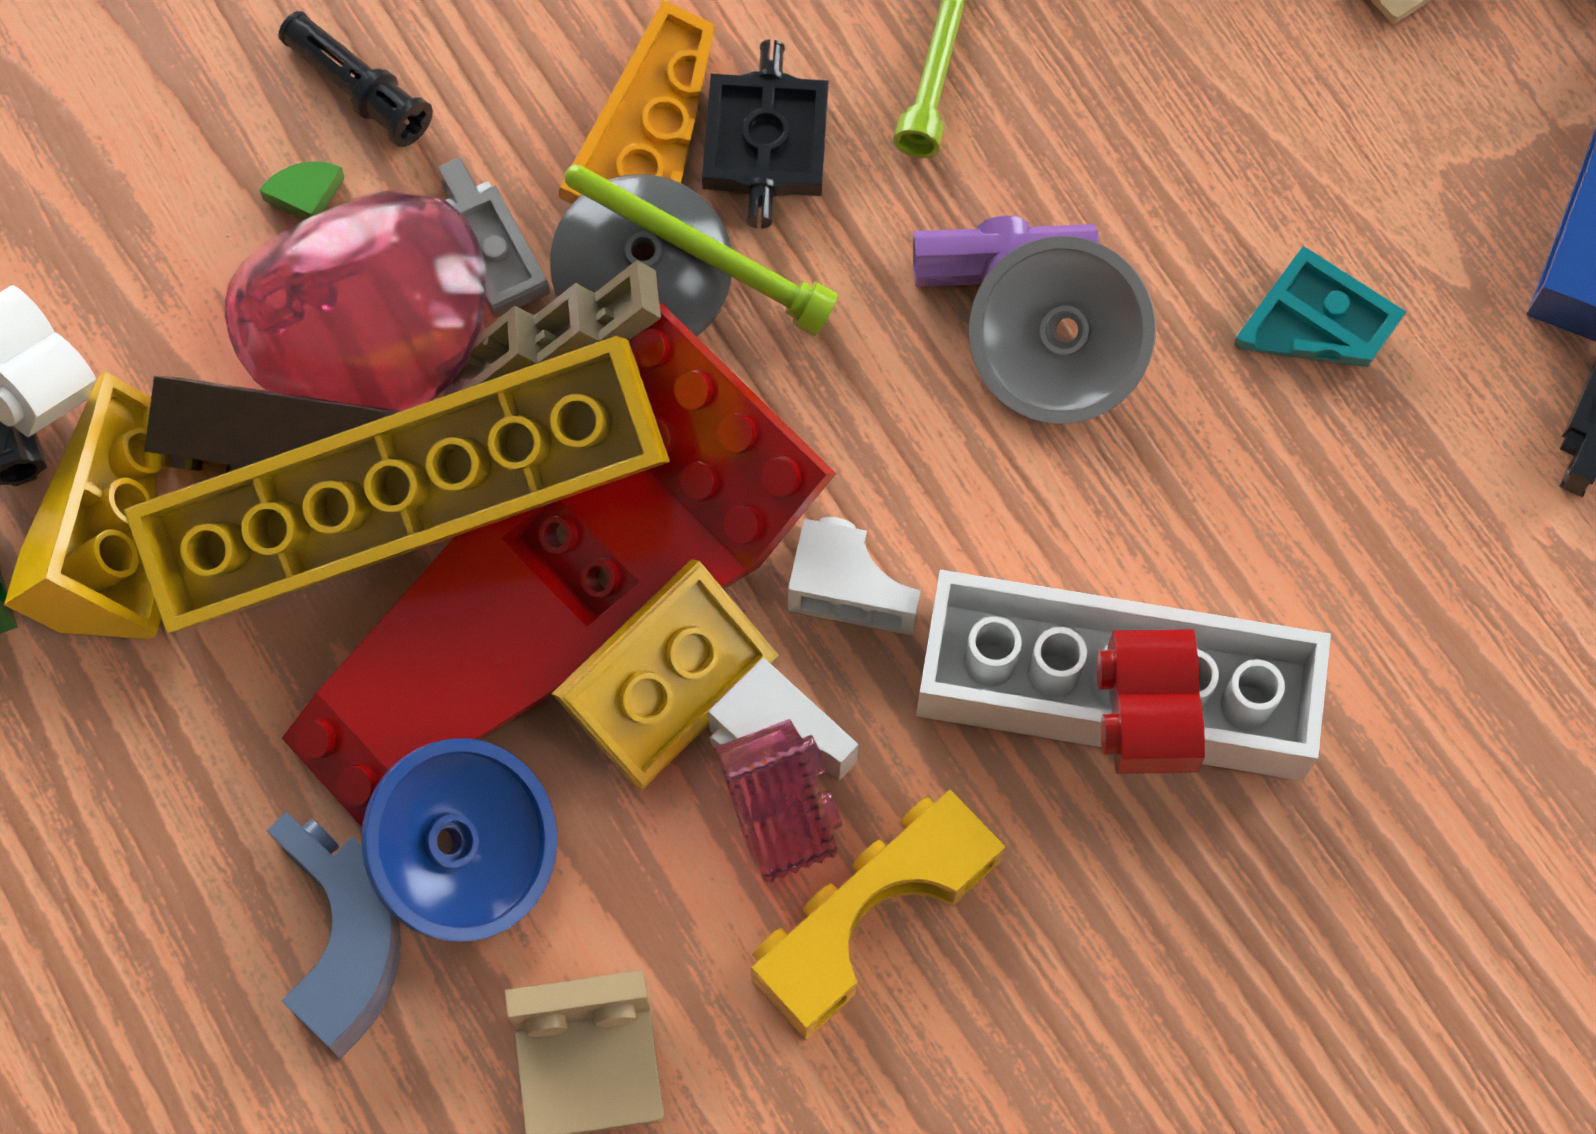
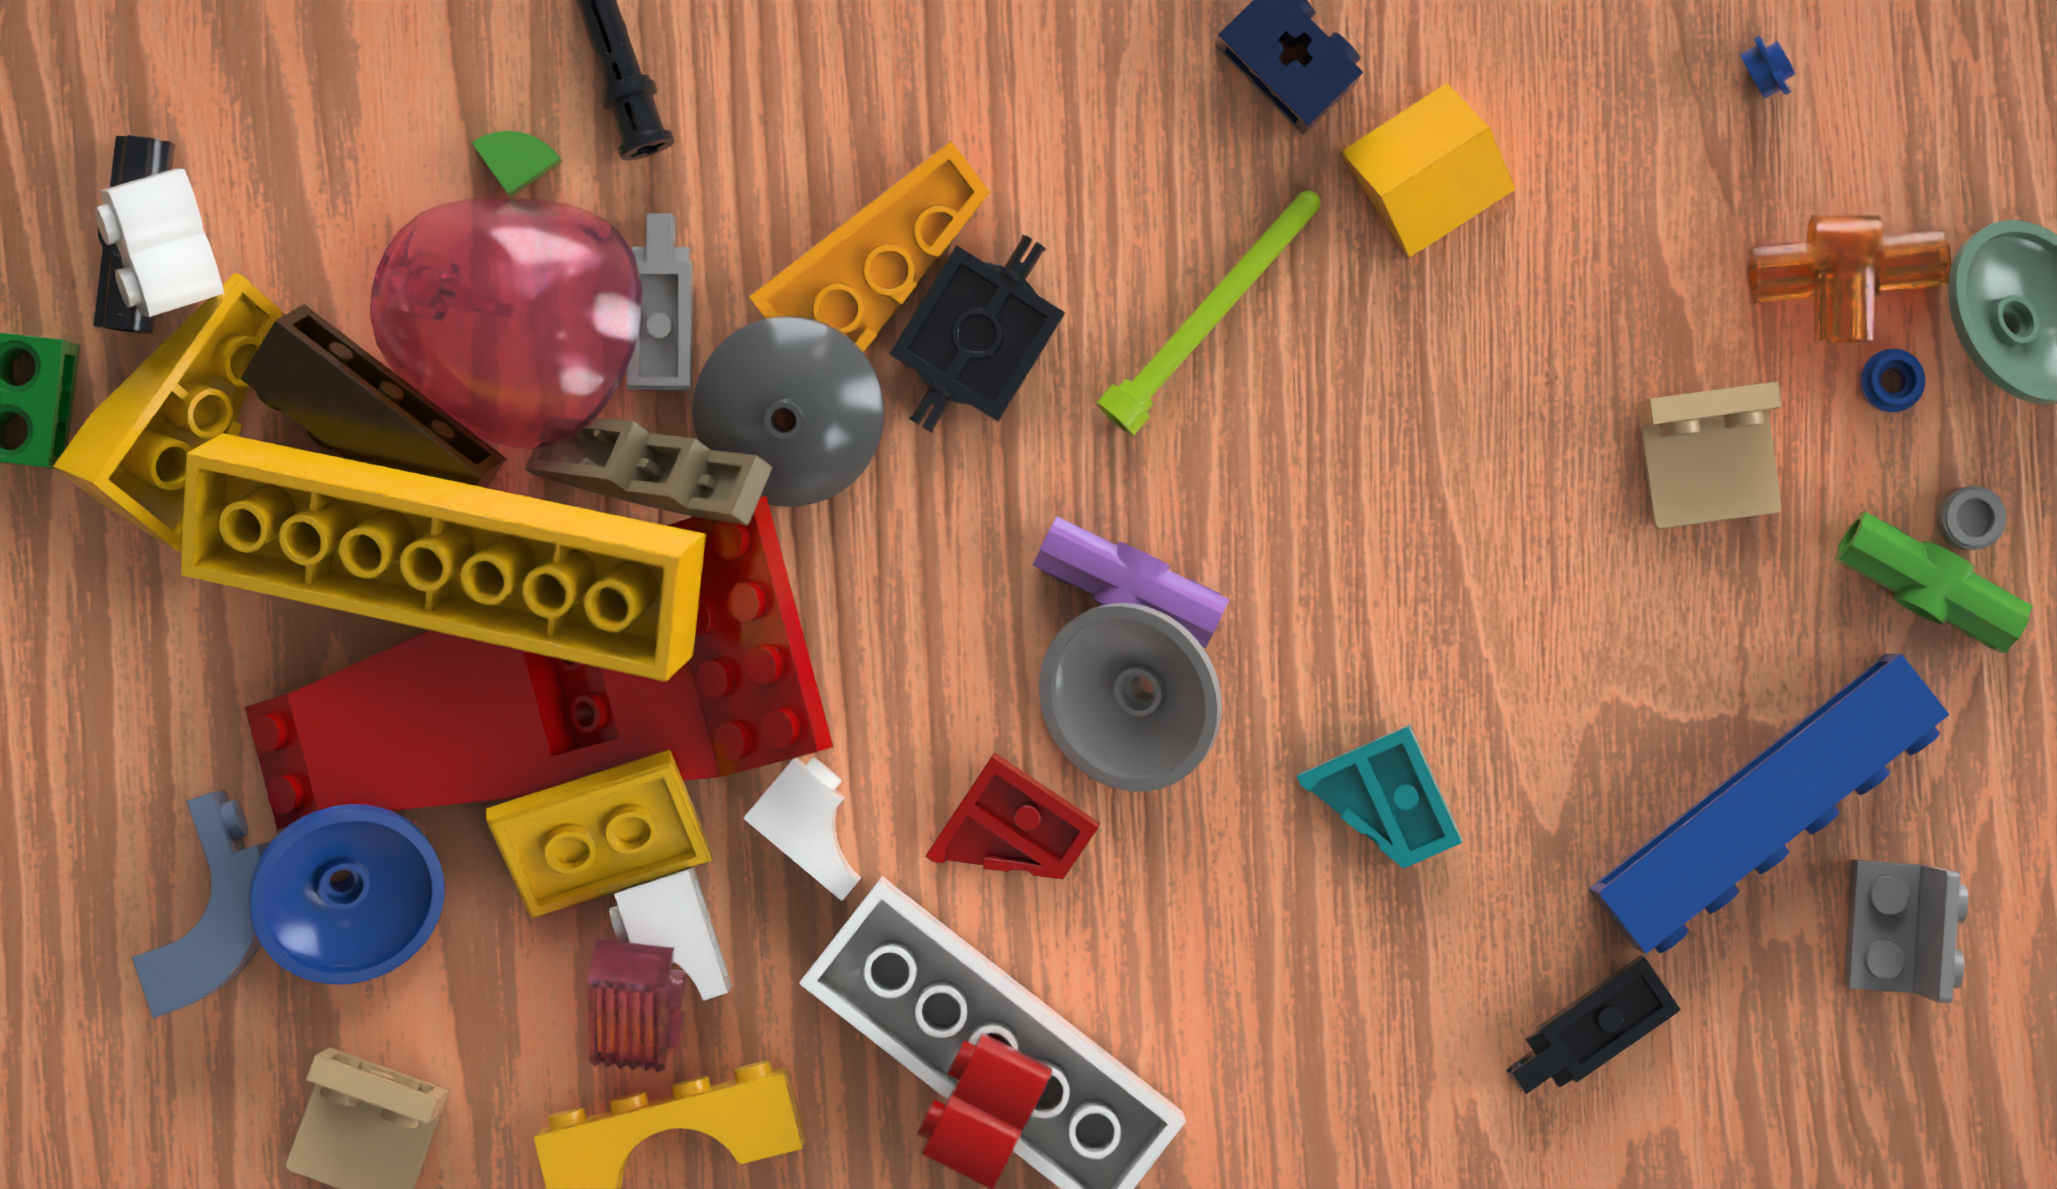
camera: 30 degrees right, 20 degrees up
(805, 303) = (918, 536): lime piece -> none
(1024, 493) = (1014, 825): none -> red wing

